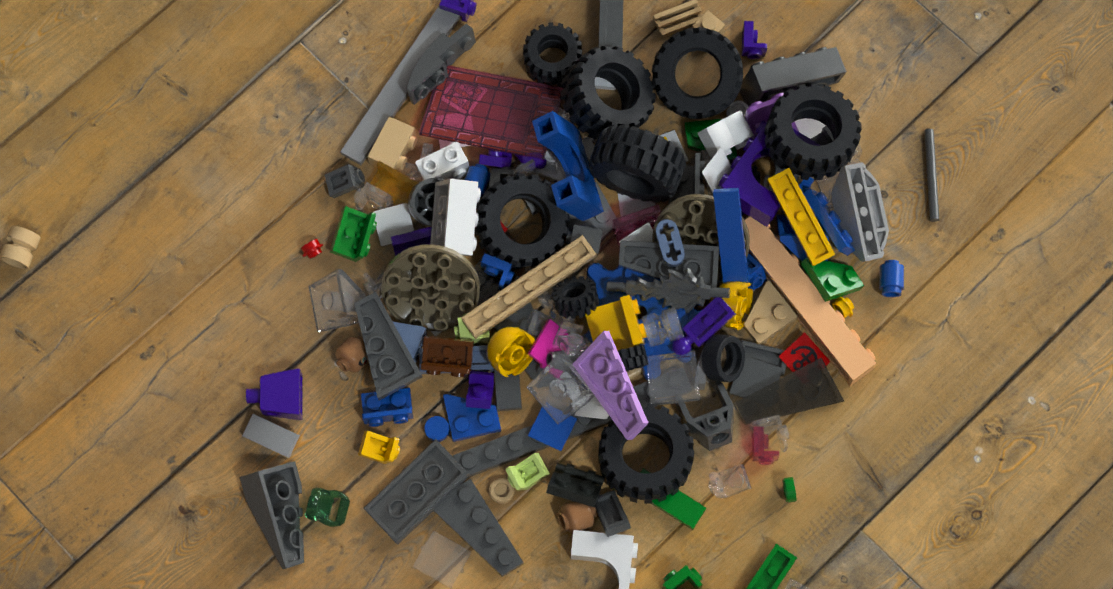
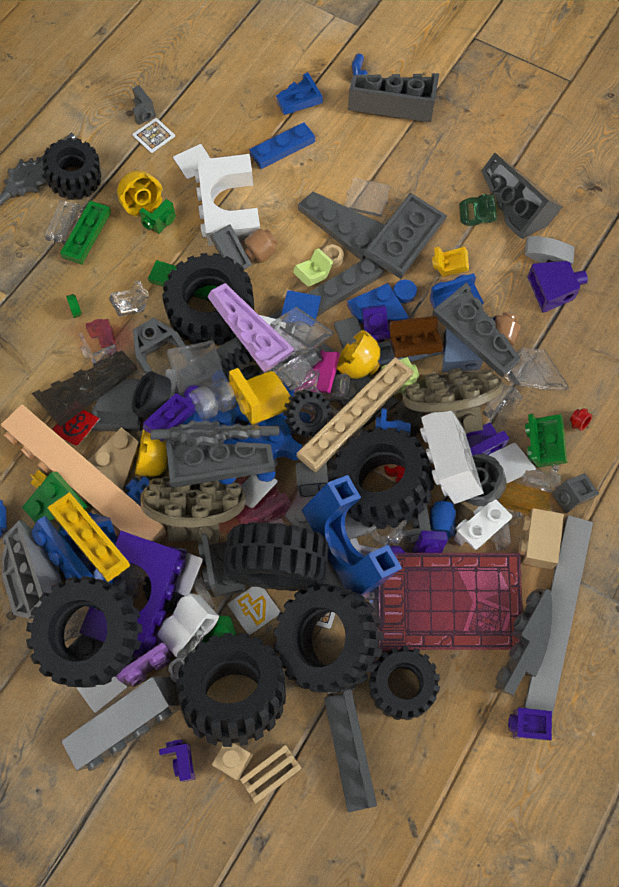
camera: 165 degrees right, 5 degrees down
(575, 484) = (268, 259): pearl dark grey plate -> none
(675, 241) = (216, 472): sand blue beam -> none
(730, 234) = (159, 494): blue tile -> none

